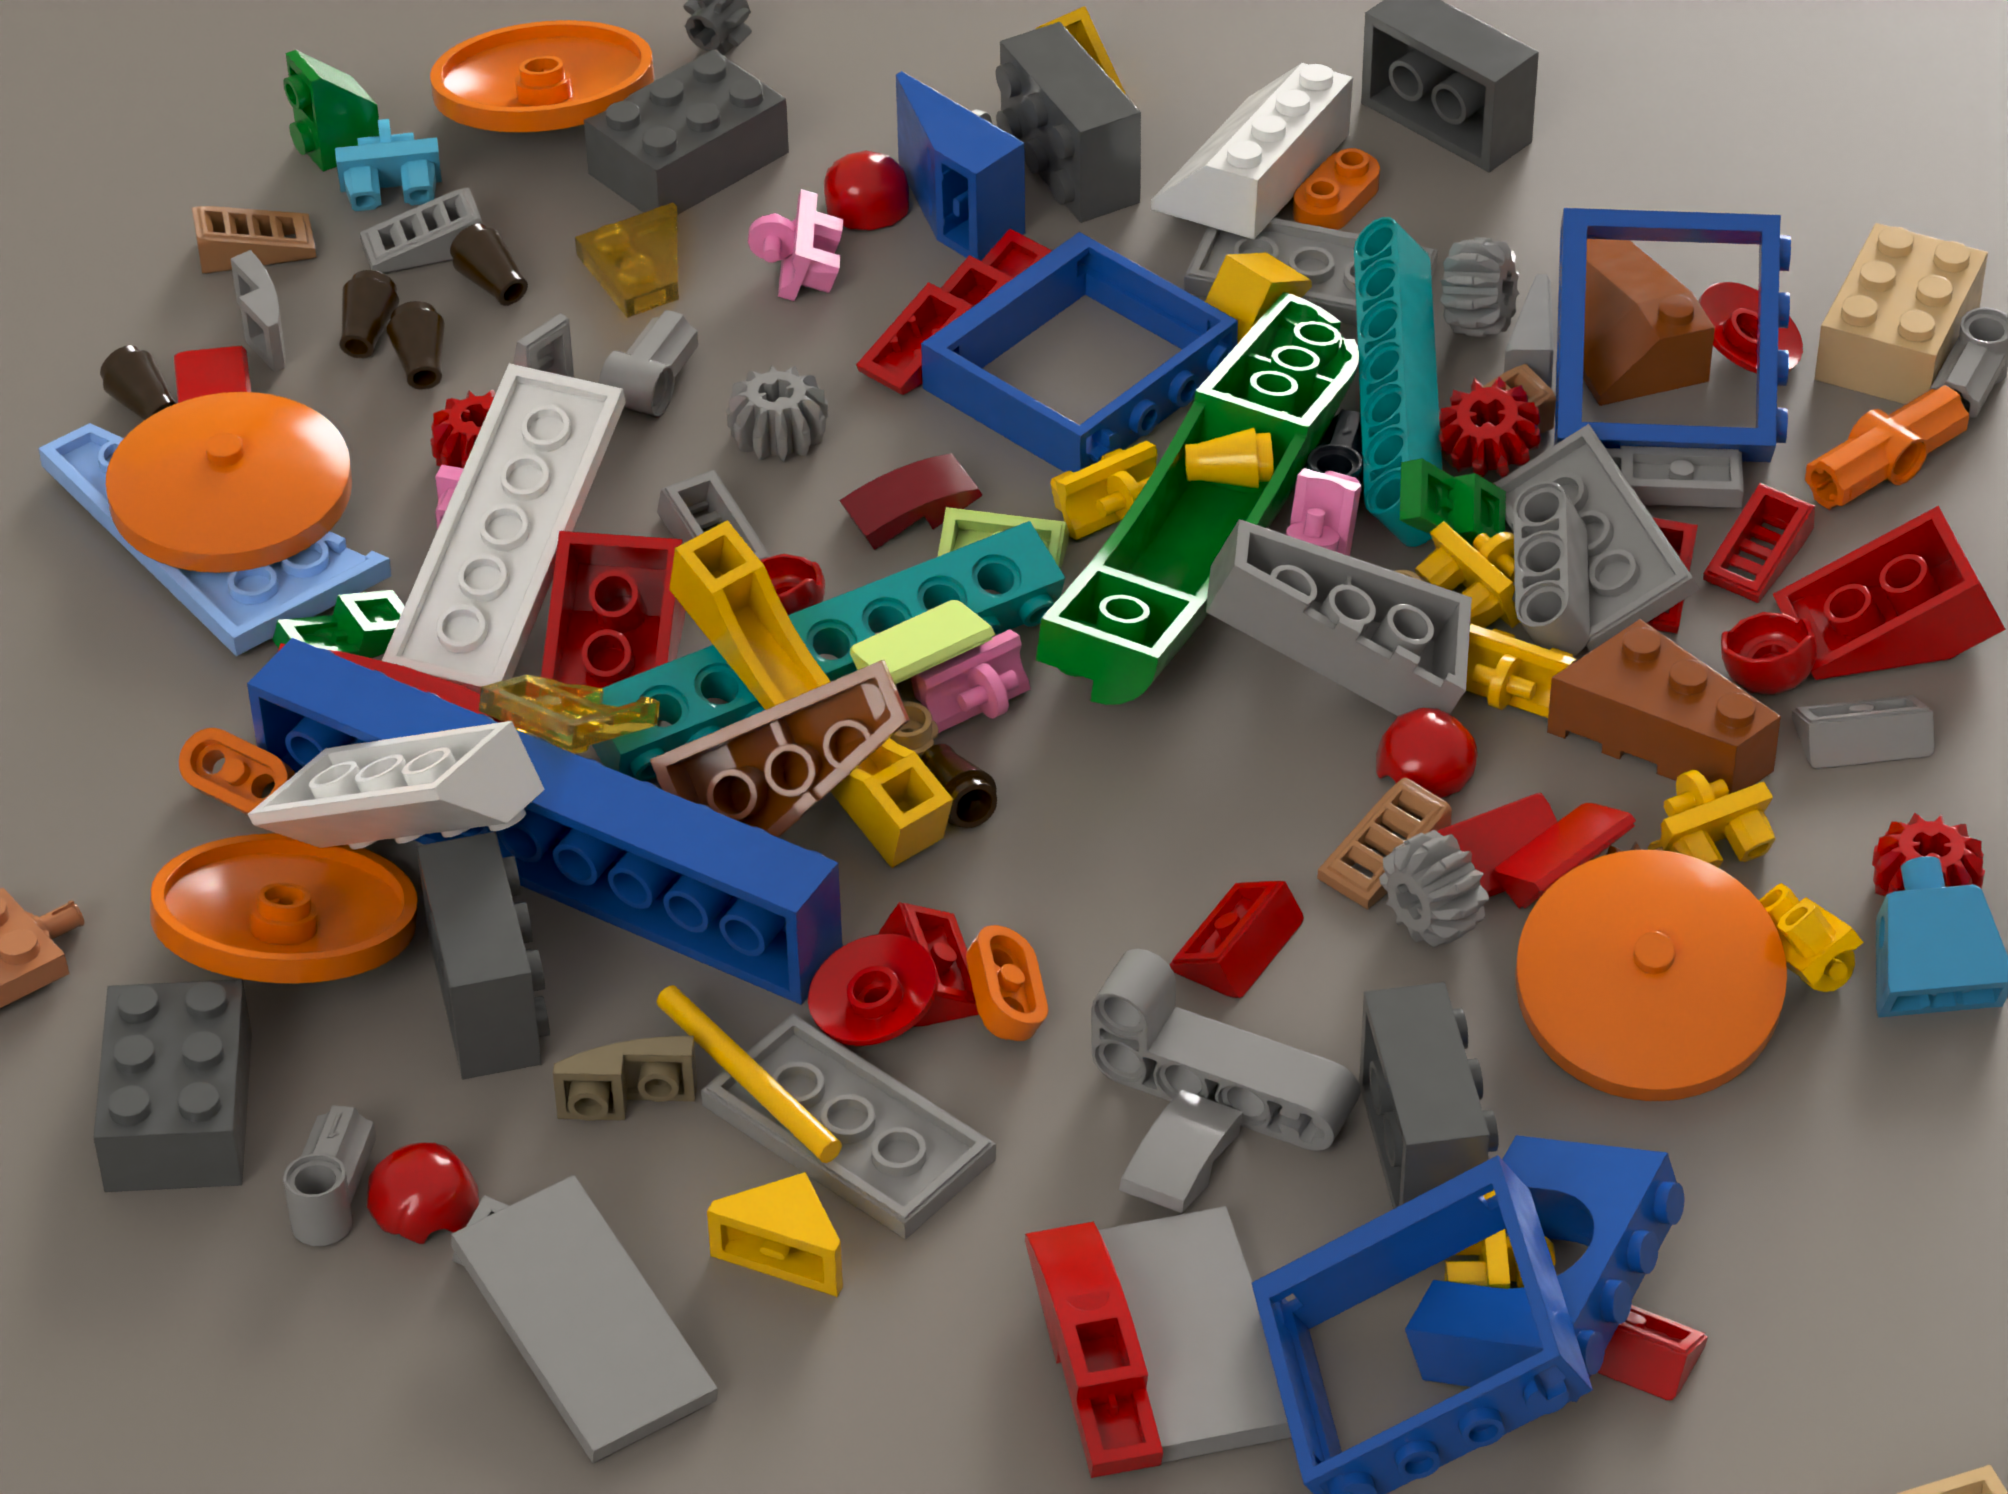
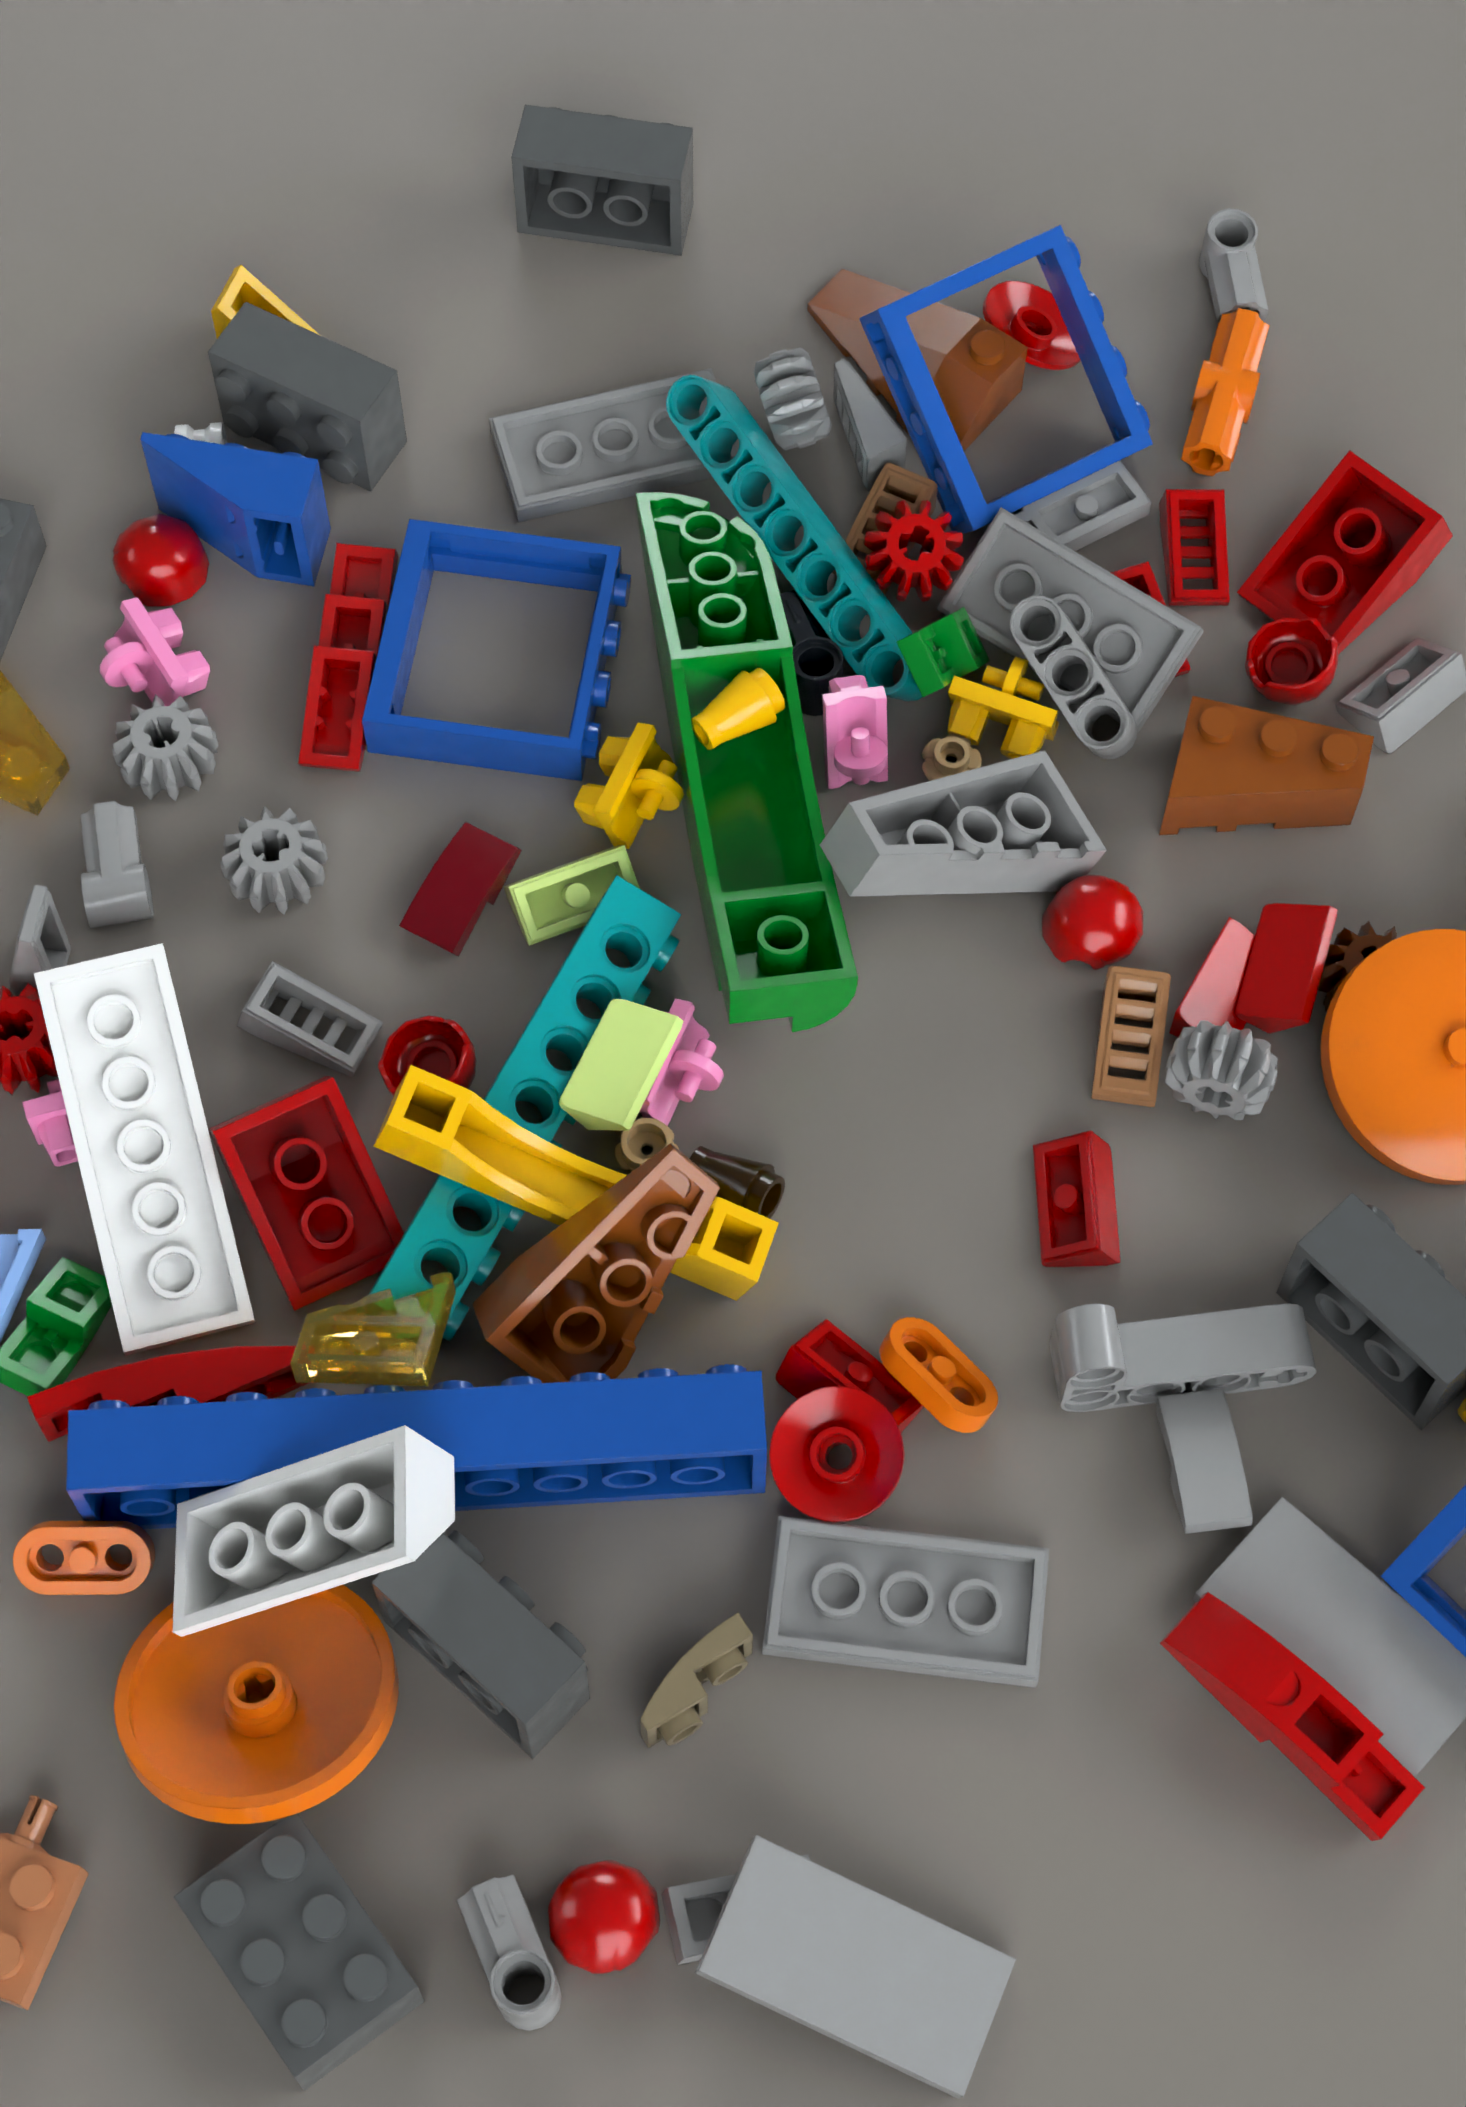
camera: 35 degrees left, 20 degrees up
(749, 1074) = (799, 1611): yellow bar -> none
(757, 306) = (165, 747): none -> light grey gear
(778, 1233) = (955, 1760): yellow slope -> none
(1250, 286) = (602, 501): yellow slope -> none
(1262, 152) = (486, 343): white slope -> none
(1337, 189) = (573, 340): orange plate -> none
(1512, 670) = (1116, 794): yellow hips -> none
(1709, 813) = (1369, 861): yellow hips -> none
(1899, 313) = (1145, 247): tan brick -> none

